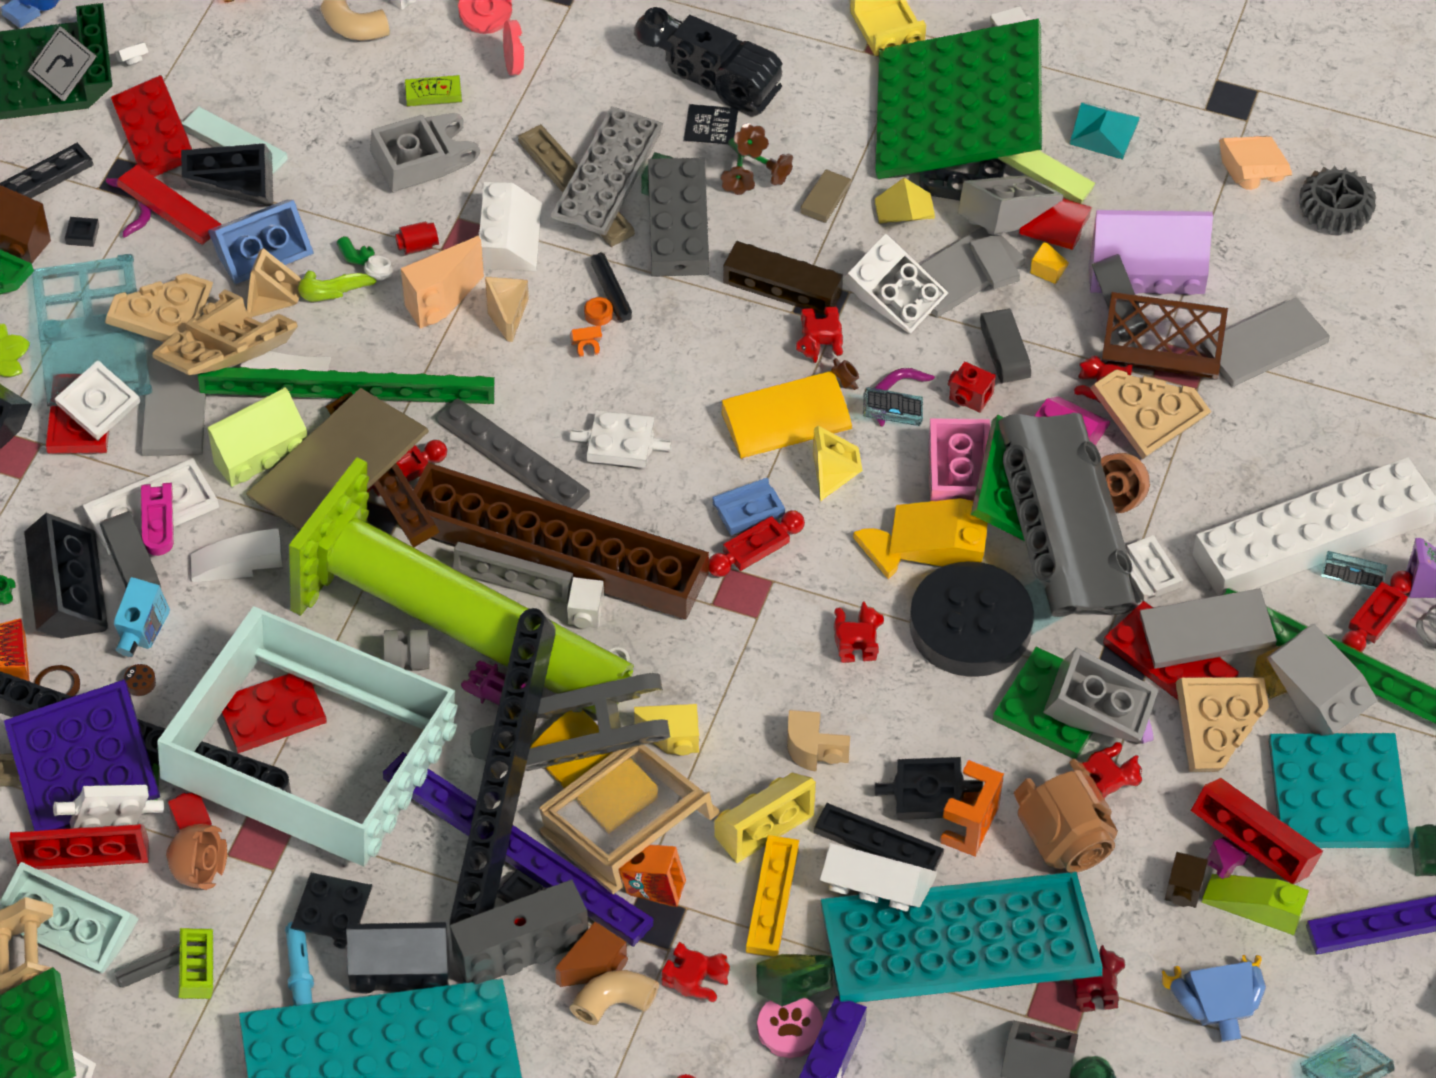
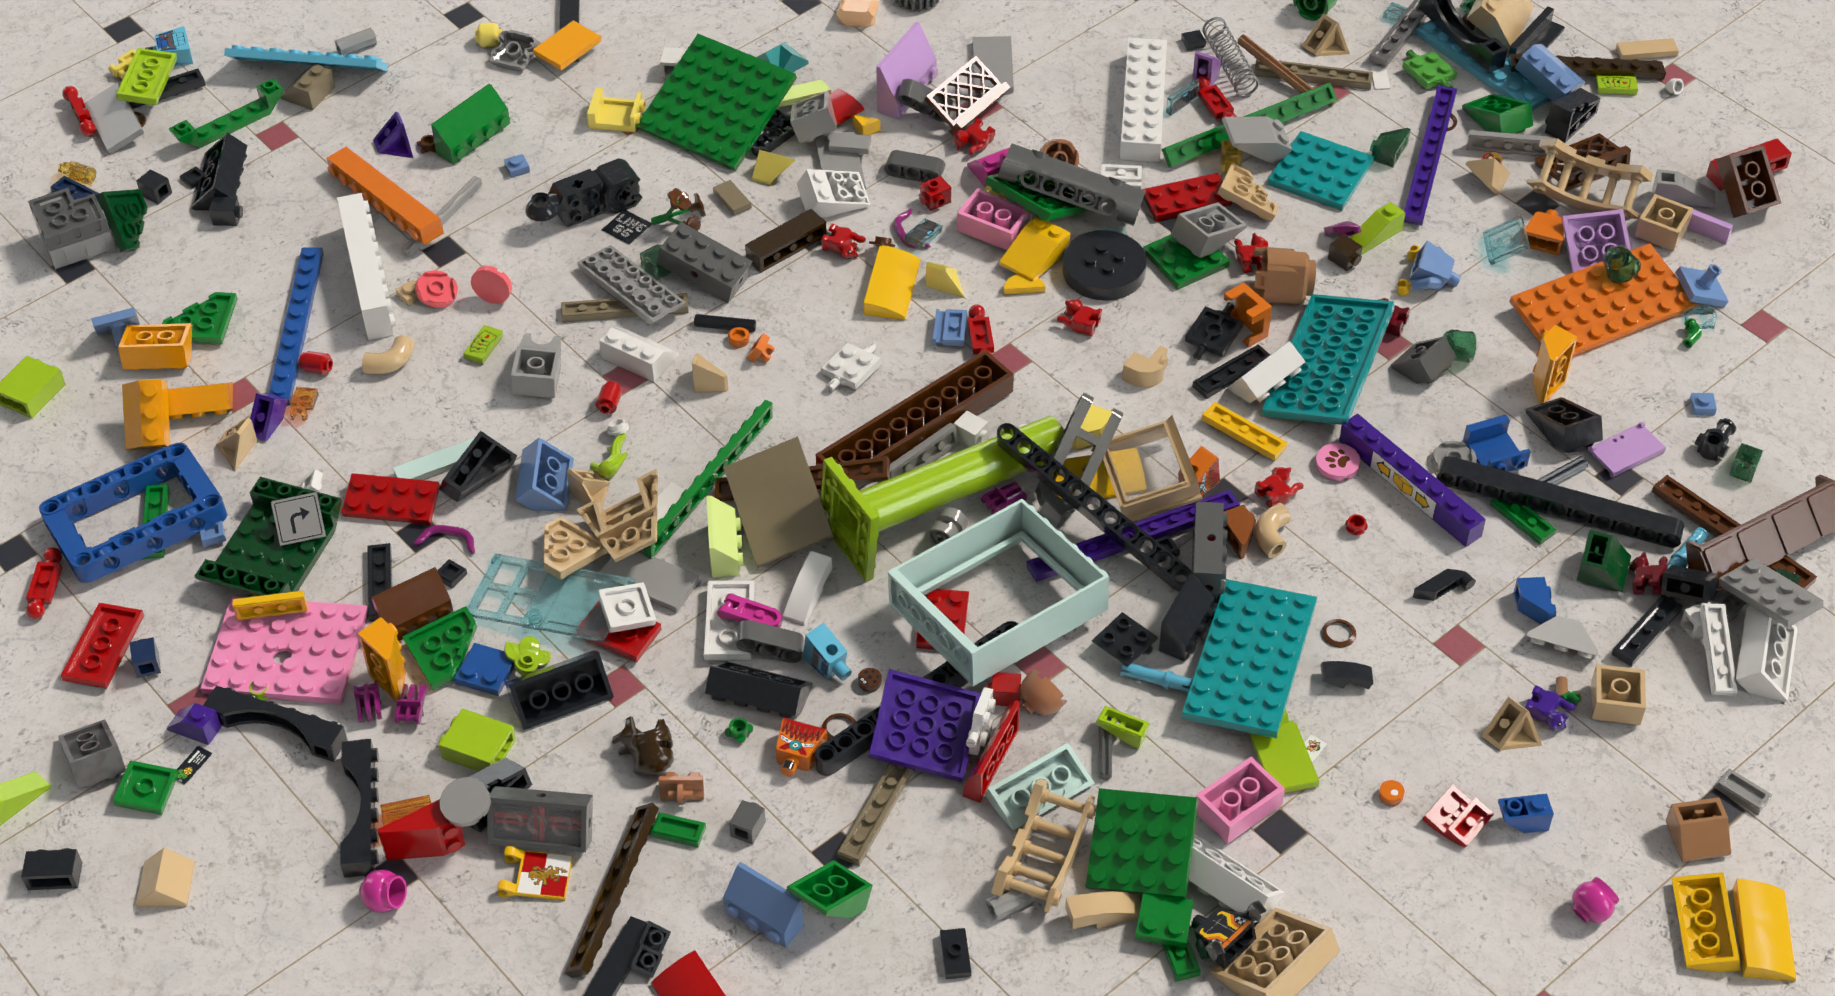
camera: 60 degrees left, 5 degrees down
(168, 204) = (470, 514): red tile -> none
(354, 255) = (593, 438): green arm -> none
(441, 281) = (665, 398): light nougat slope -> none
(512, 455) = (824, 422): flat silver plate -> none
(770, 812) = (1188, 405): light yellow slope -> none
(793, 977) = (1310, 443): clear green slope -> none
(1149, 409) = (1012, 125): tan plate -> none
(1207, 628) = (1187, 167): light grey tile -> none
(1256, 831) = (1334, 208): red brick -> none

